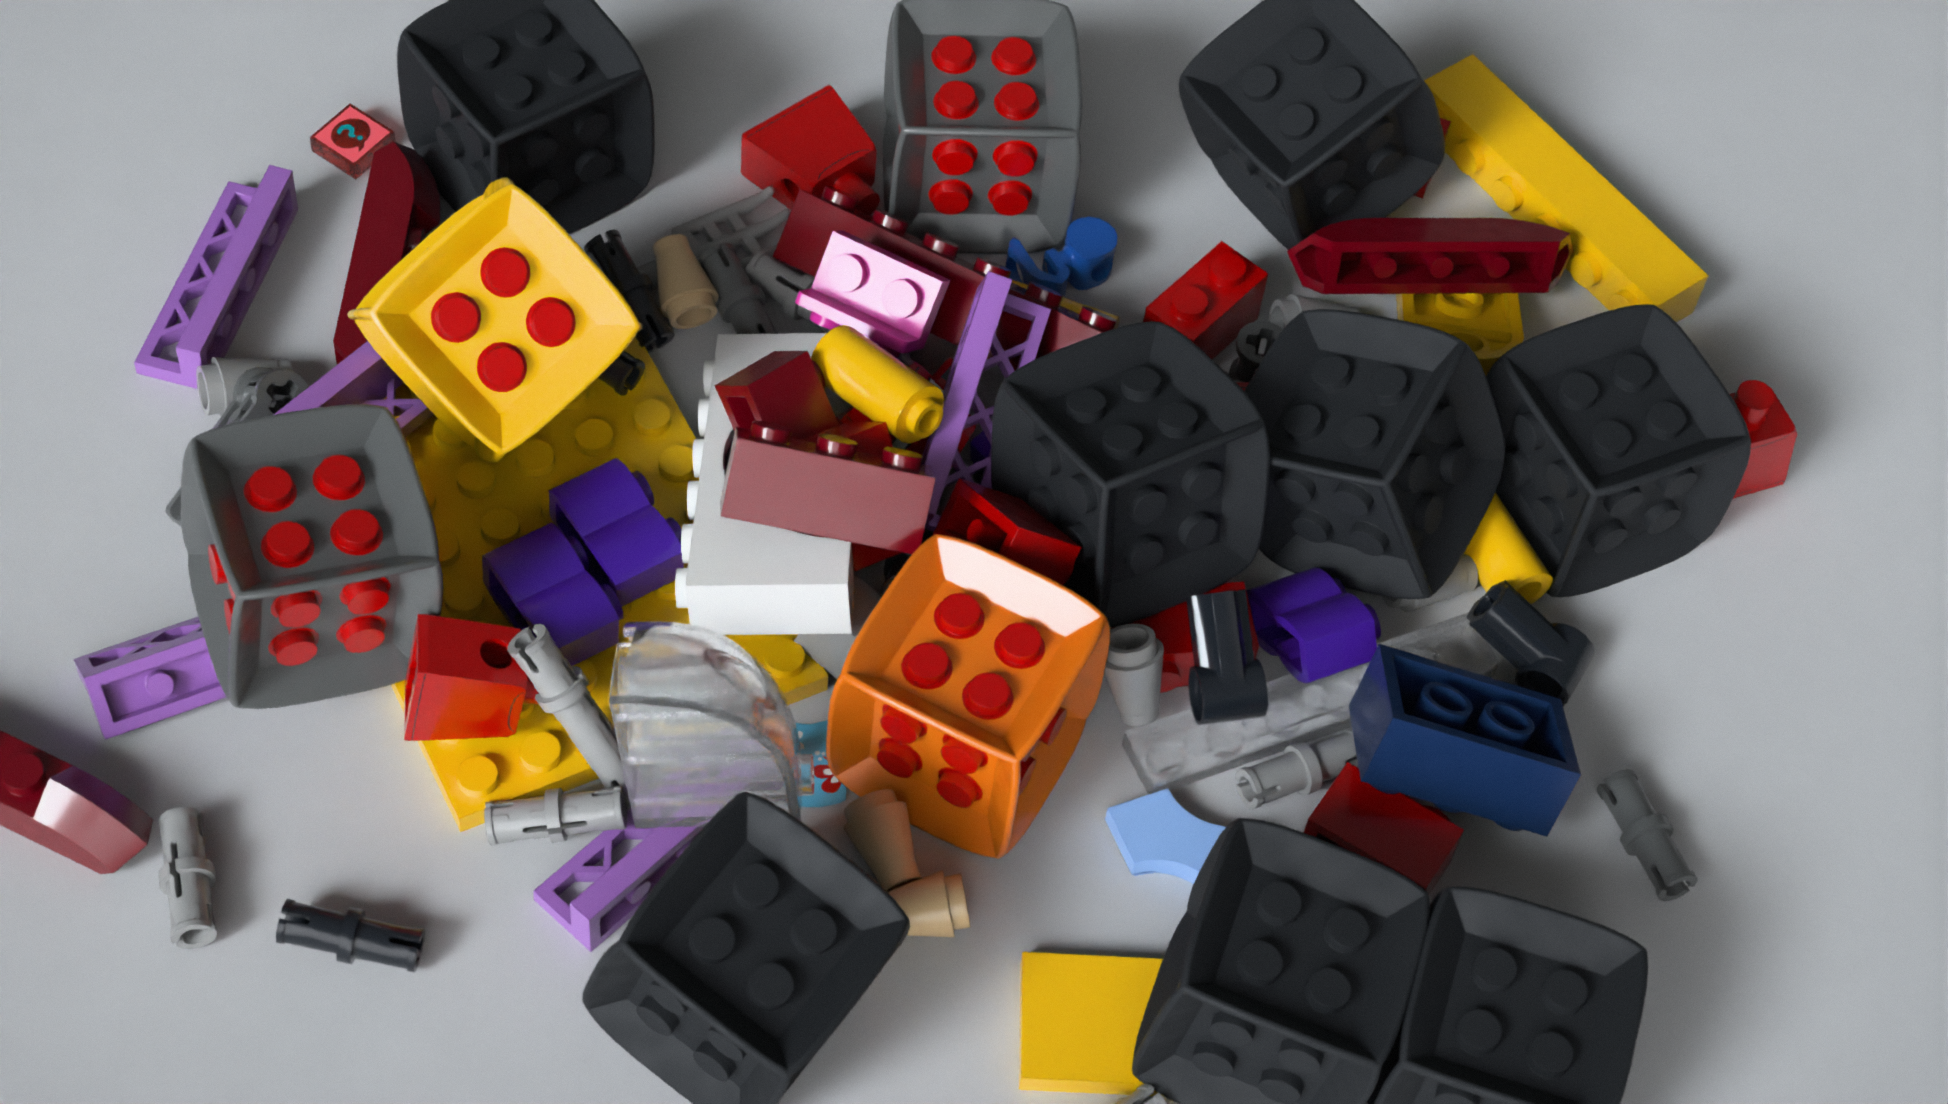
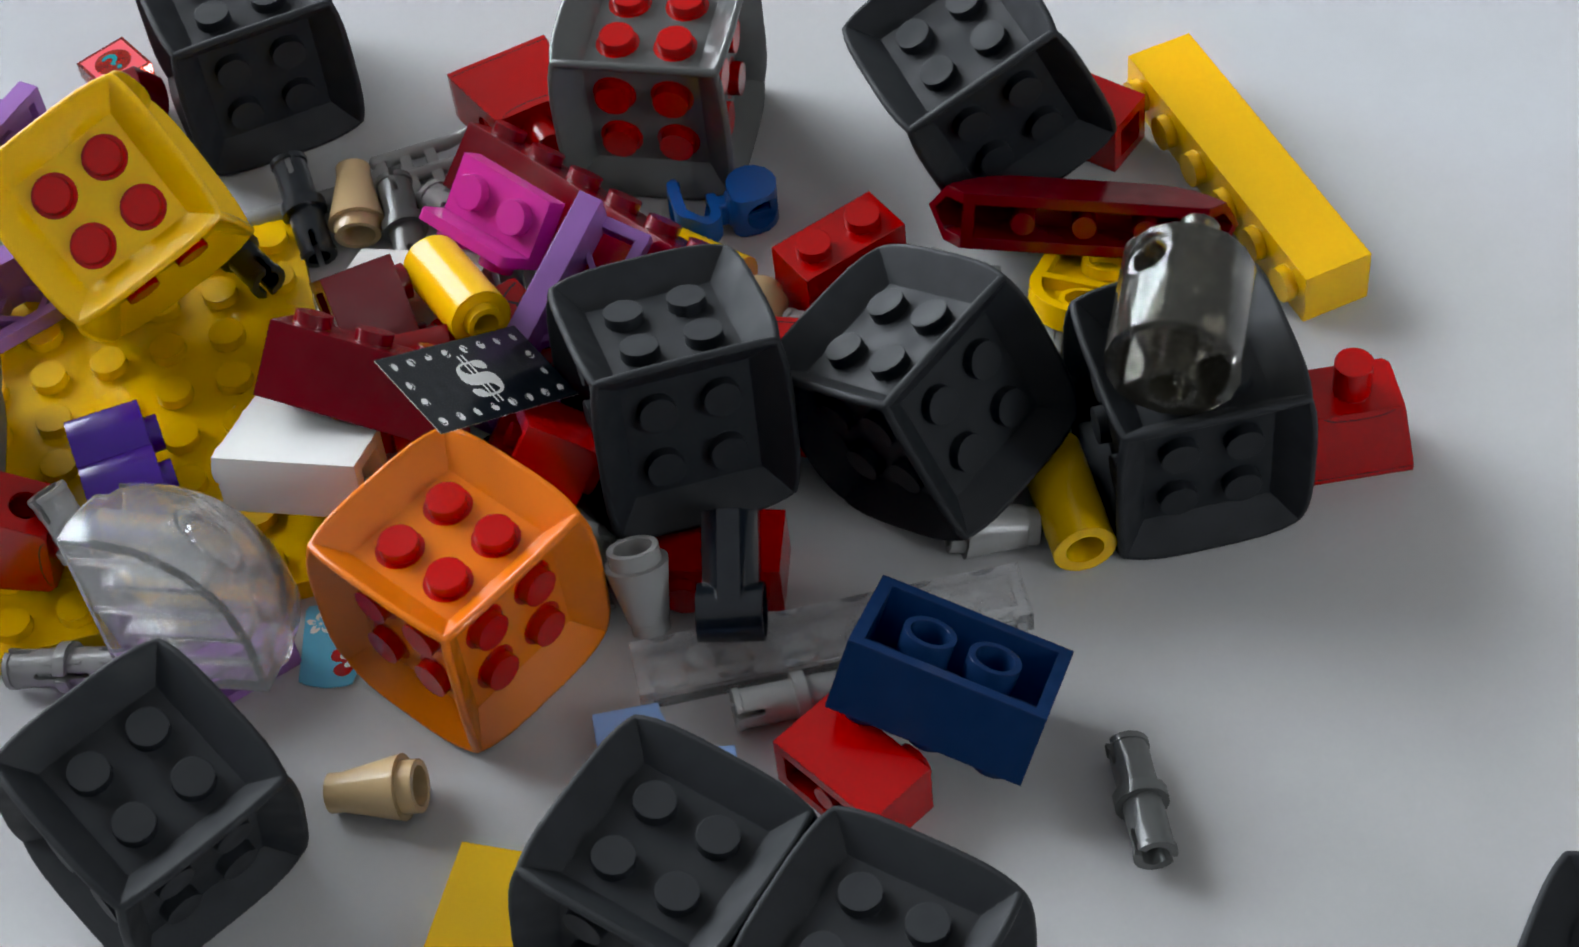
camera: 25 degrees right, 5 degrees down
(619, 529) = (196, 408): dark purple brick -> none
(883, 837) = (364, 715): tan cone -> none
(954, 482) = (476, 378): none -> black sticker
(1313, 624) = (846, 555): dark purple brick -> none
(1545, 653) = (1084, 611): black piece -> none
(1633, 371) = (1181, 317): none -> clear smoke cylinder

